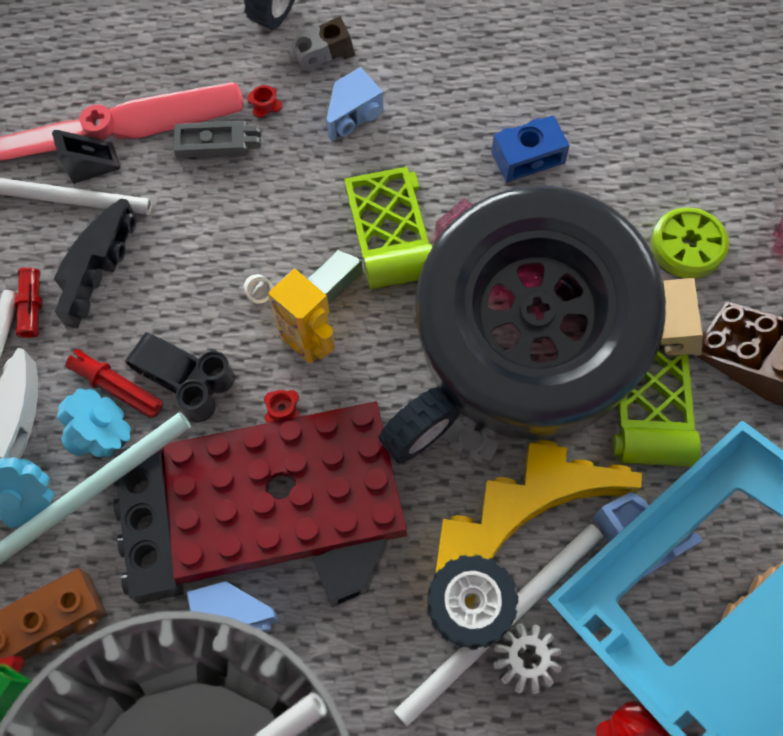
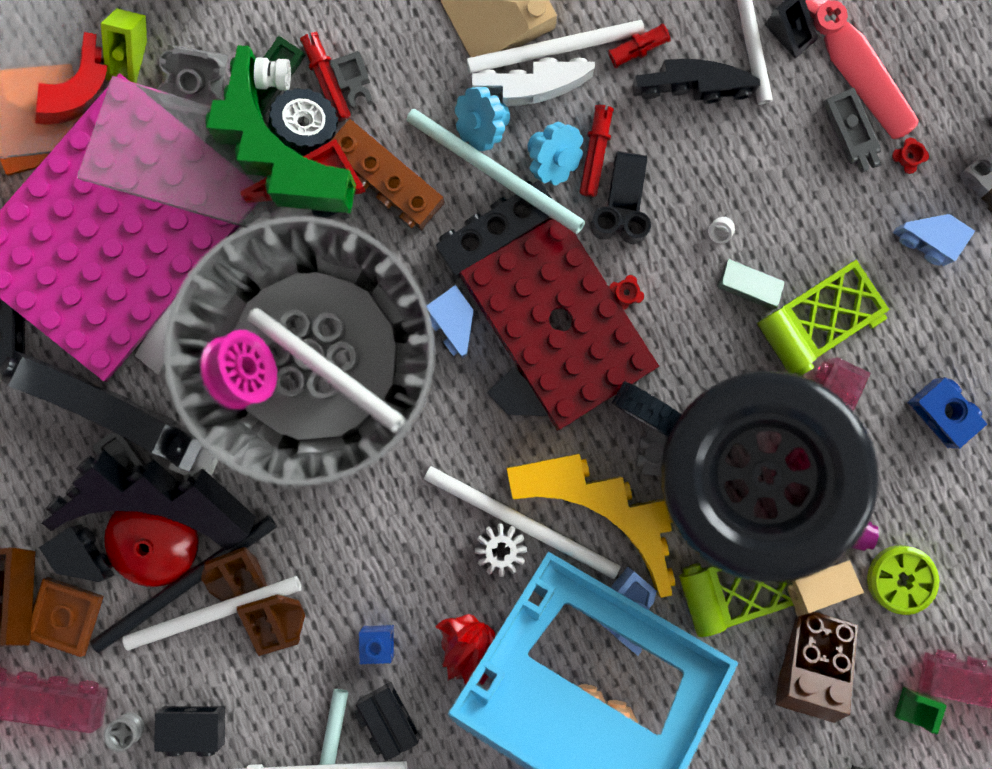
camera: 65 degrees right, 20 degrees up
(302, 316) = (702, 283): yellow piece -> none
(495, 599) = (534, 512): black wheel -> none

